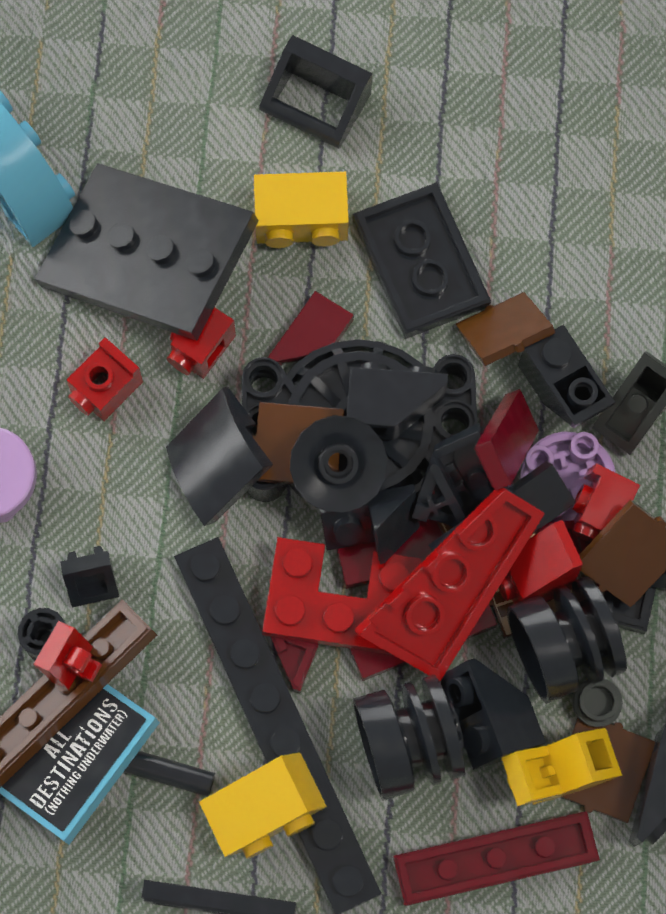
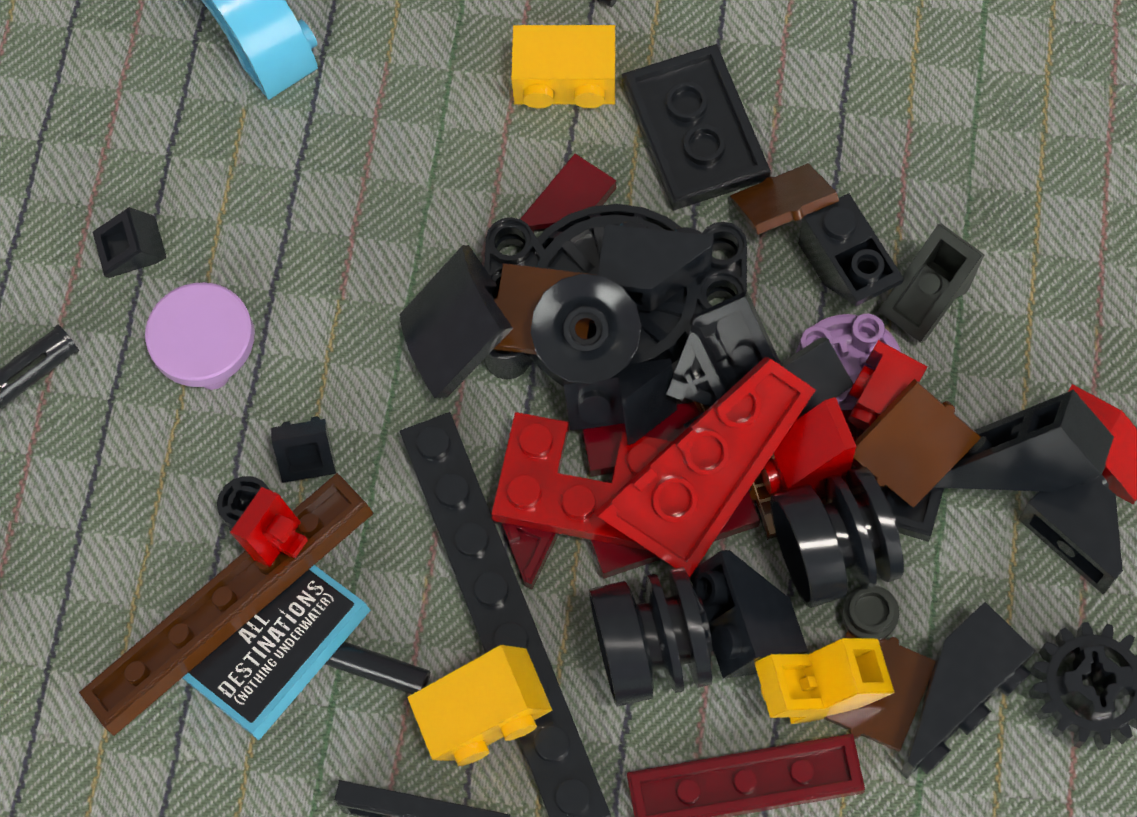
camera: 10 degrees right, 5 degrees down
(103, 398) = (339, 255): red brick -> none
(147, 250) = (391, 103): black plate -> none
(201, 355) = (444, 199): red brick -> none
(506, 440) = (777, 312): dark red tile -> none

